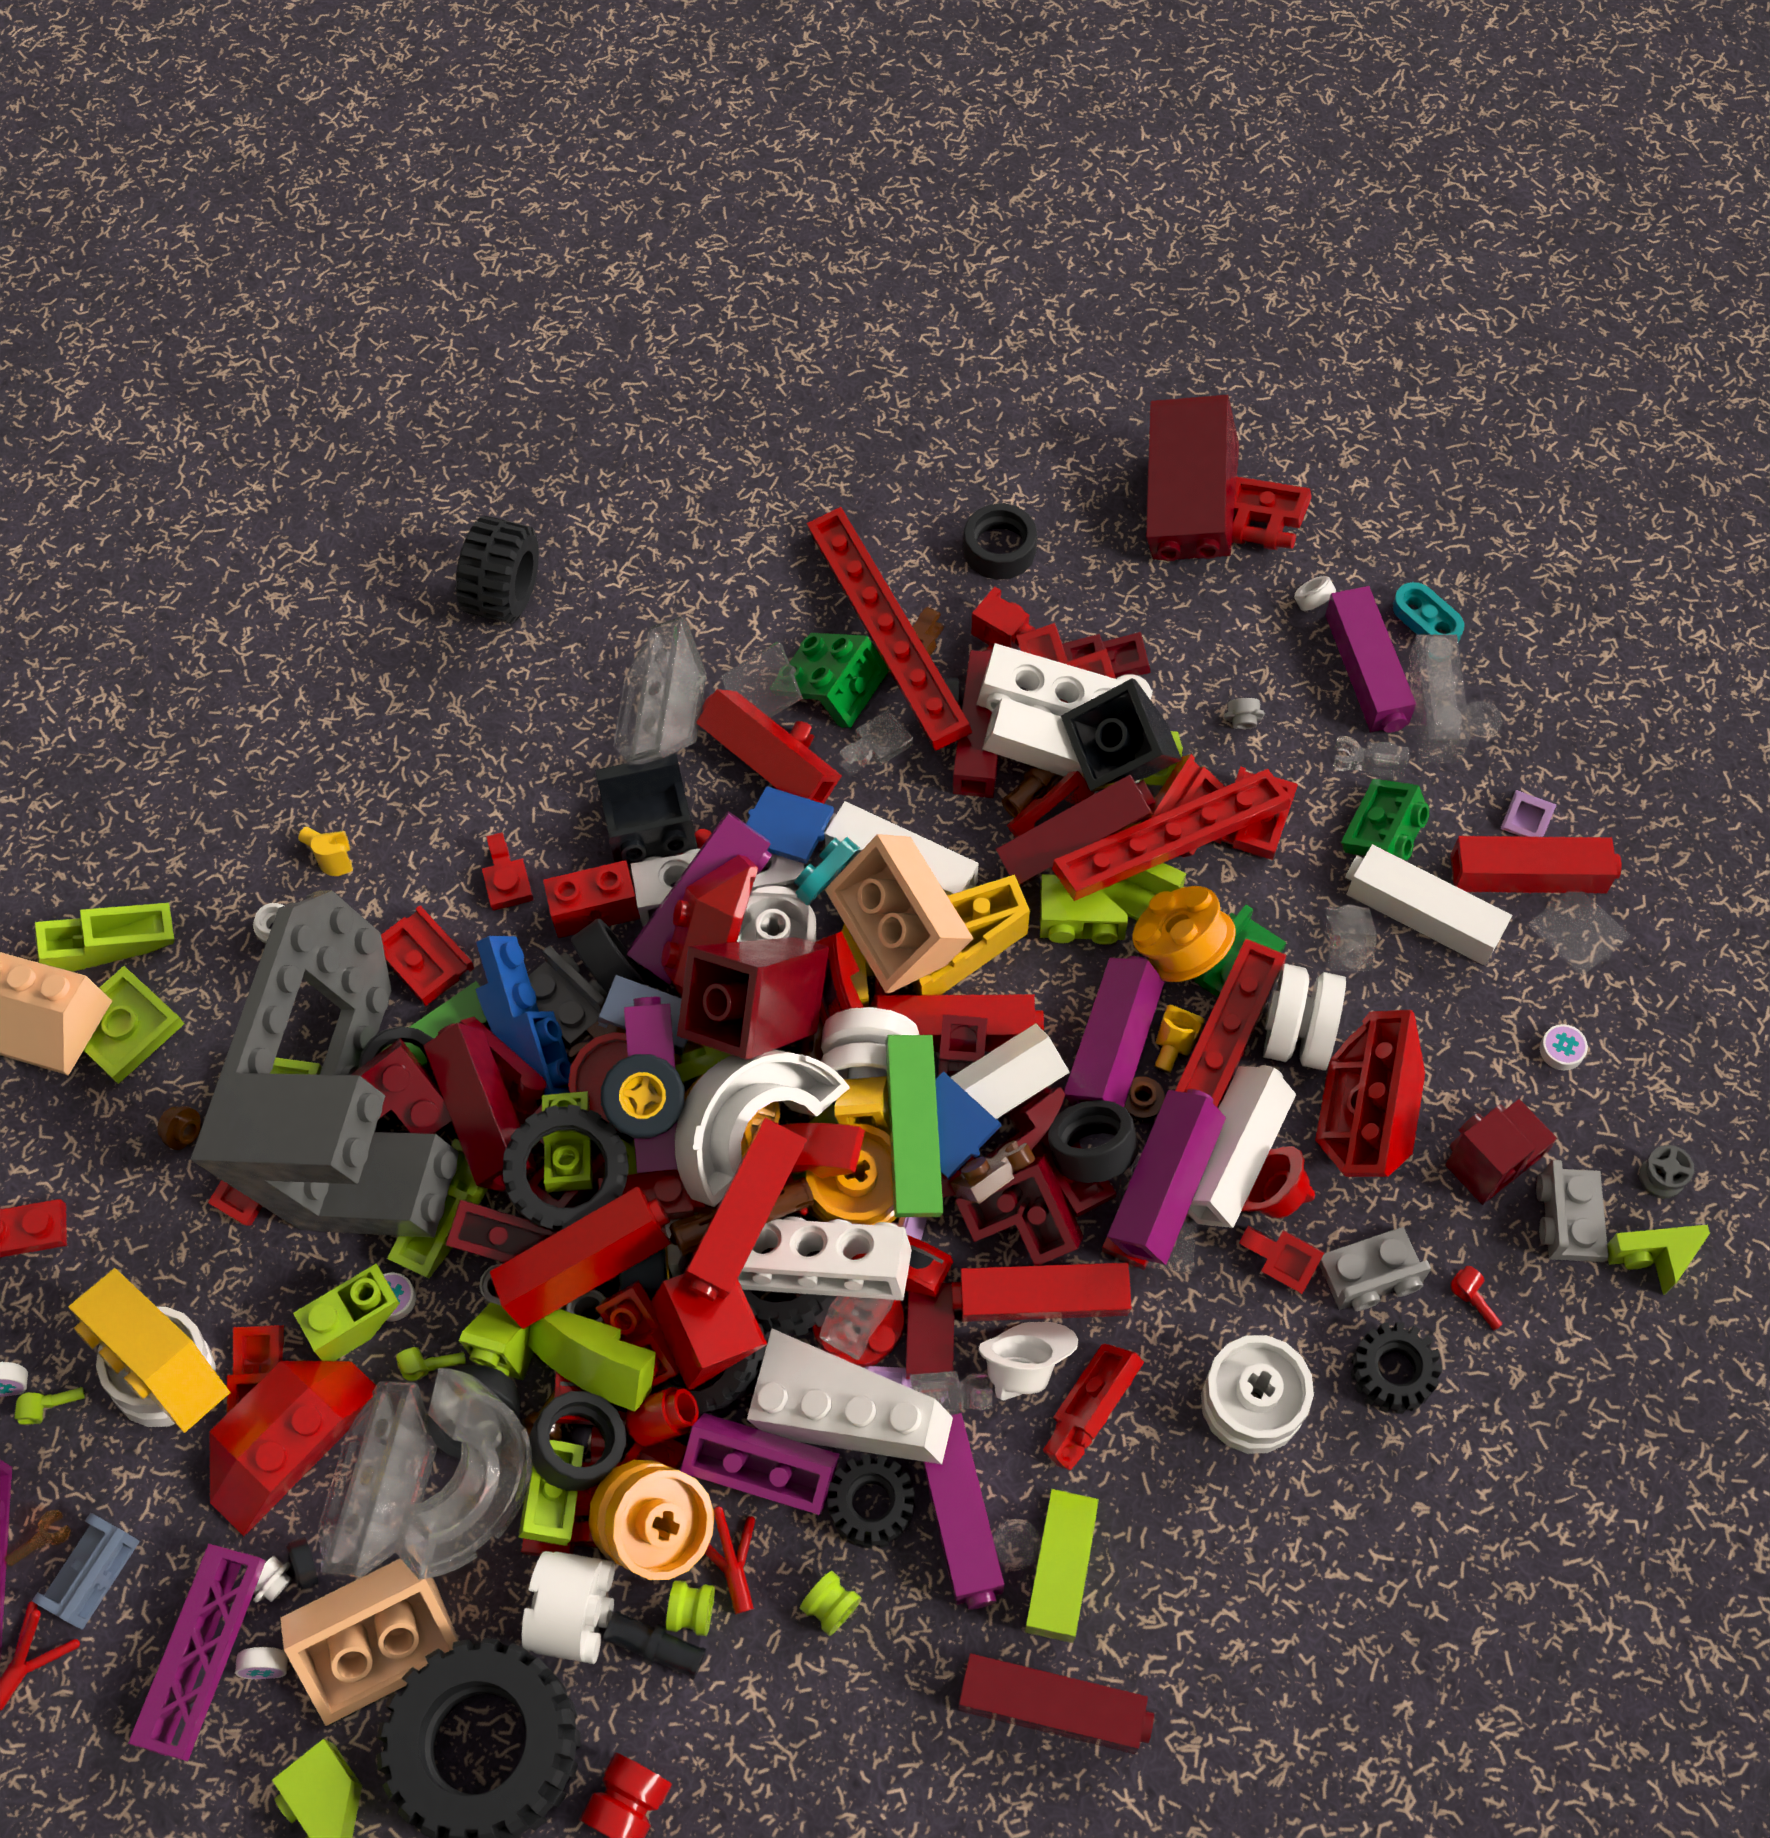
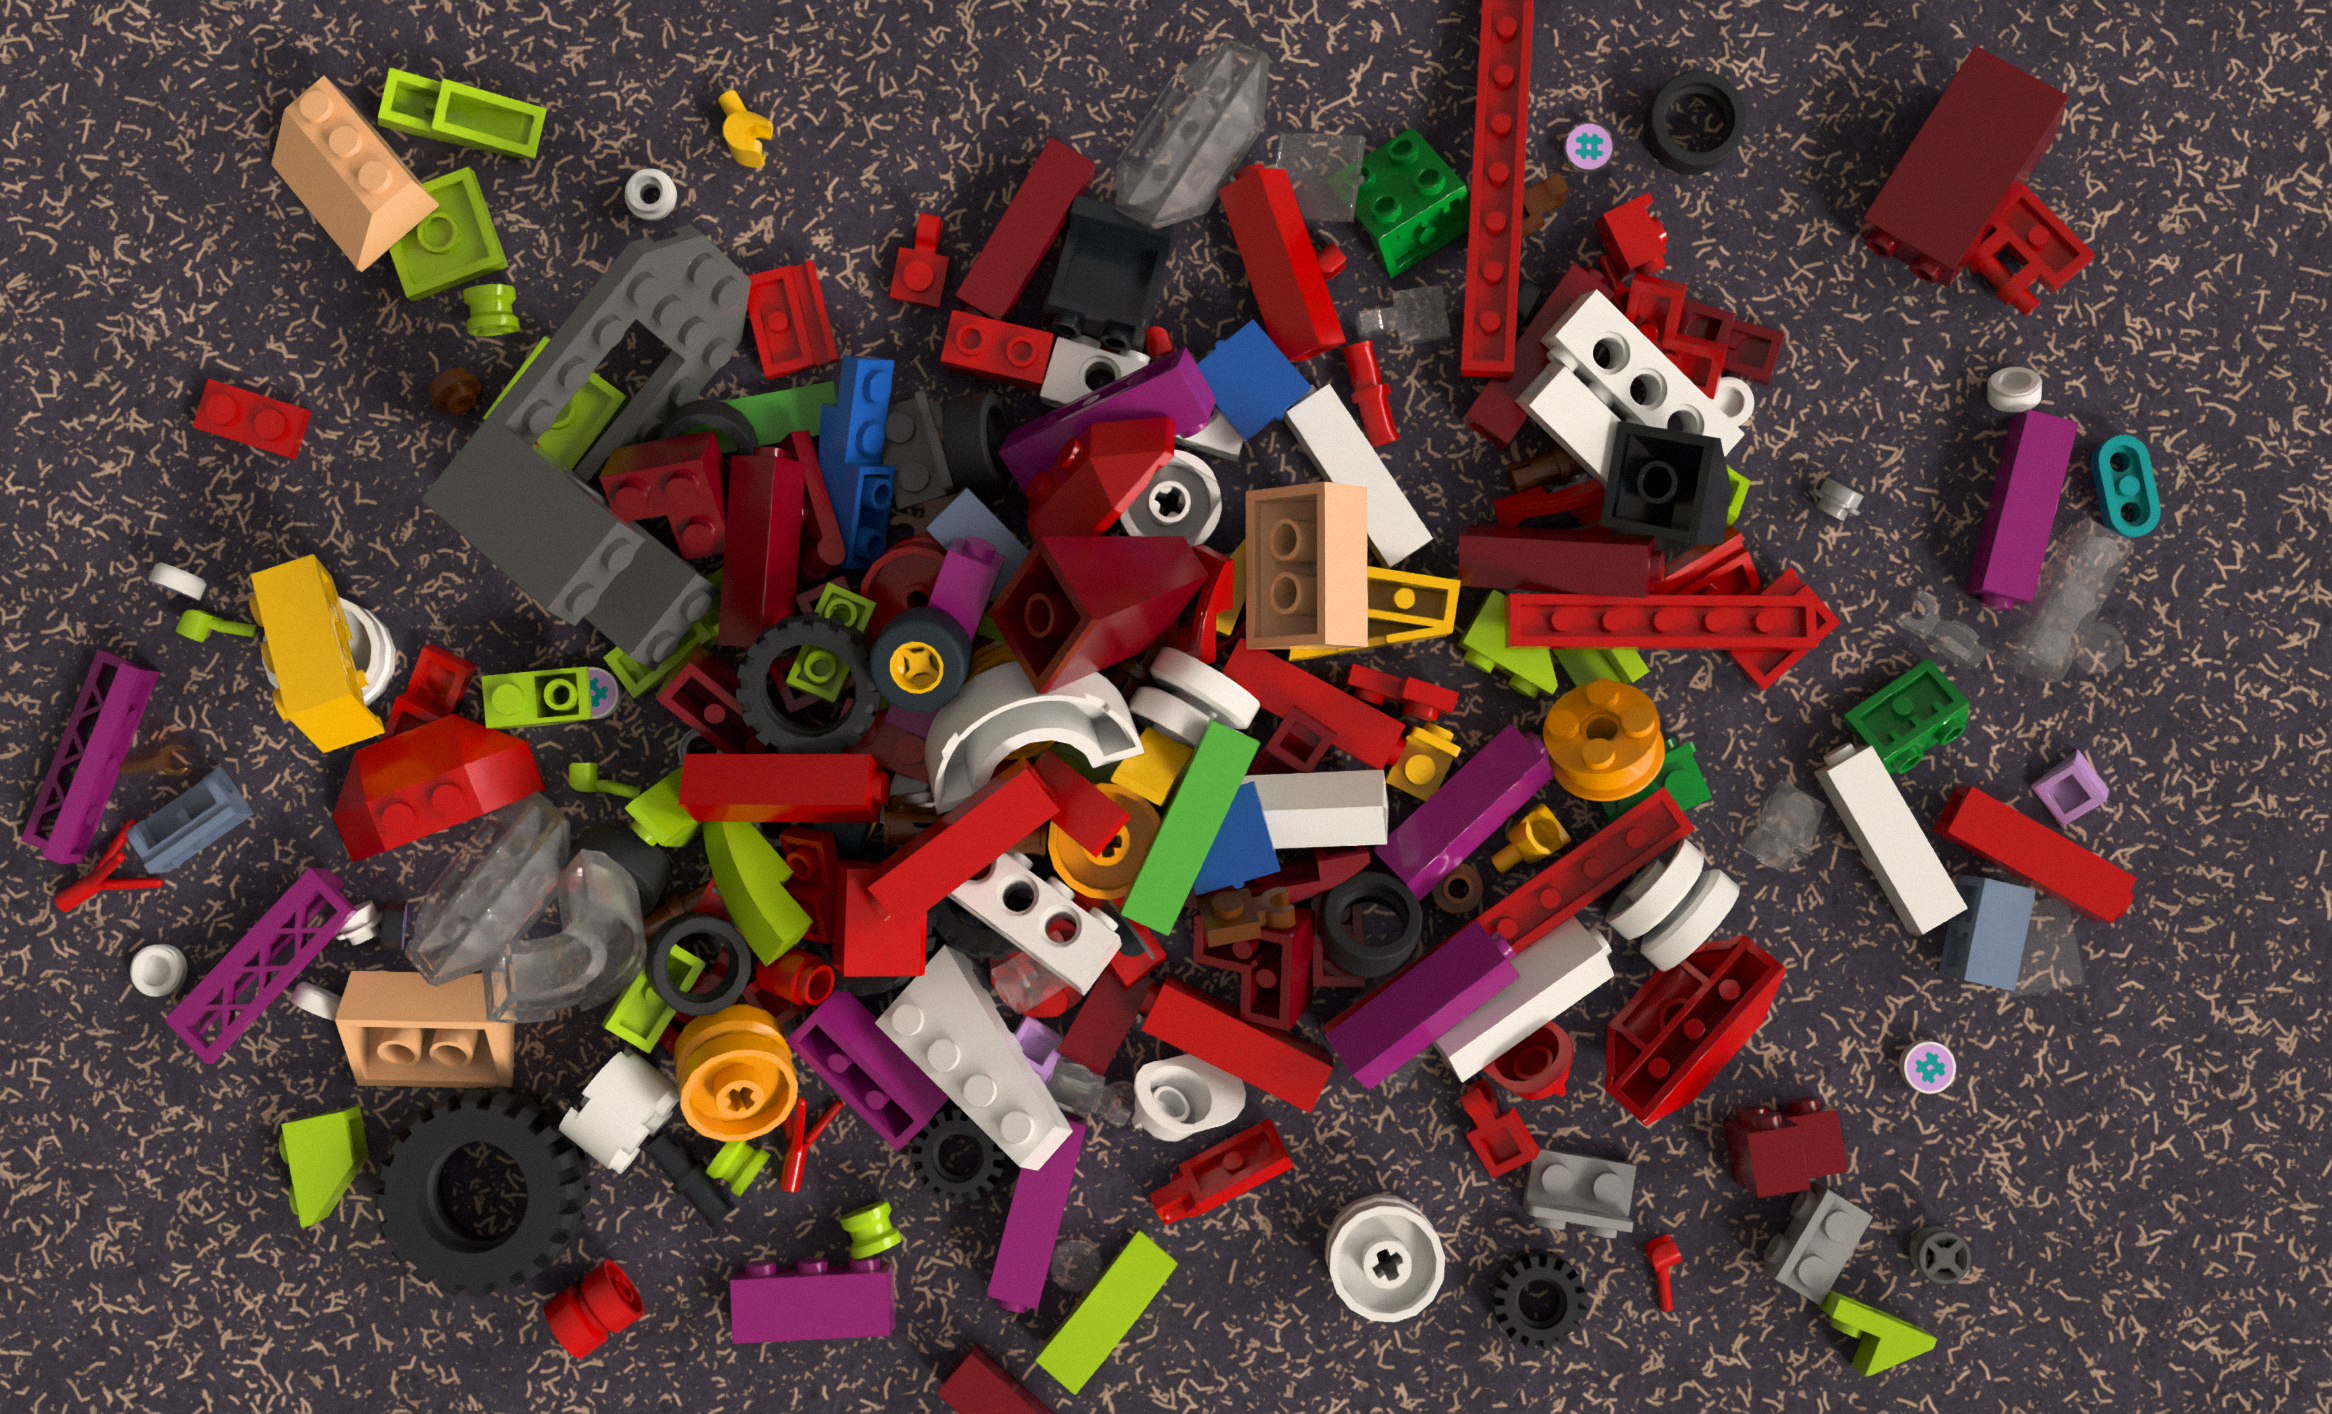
camera: 25 degrees right, 25 degrees up
(105, 1717) = (158, 970): none -> white tile
(184, 1056) = (491, 310): none -> lime wheel
(571, 810) = (1026, 233): none -> dark red brick
(812, 1690) = (812, 1300): none -> magenta brick
(815, 880) = (1244, 471): teal plate -> none
(876, 799) = (1370, 393): none -> red pin
(938, 590) = (1587, 148): none -> tile
(1034, 972) = (1419, 698): none -> red plate
(1064, 1018) = (1423, 761): none -> yellow bracket
(1539, 932) = (1990, 935): none -> sand blue hinge

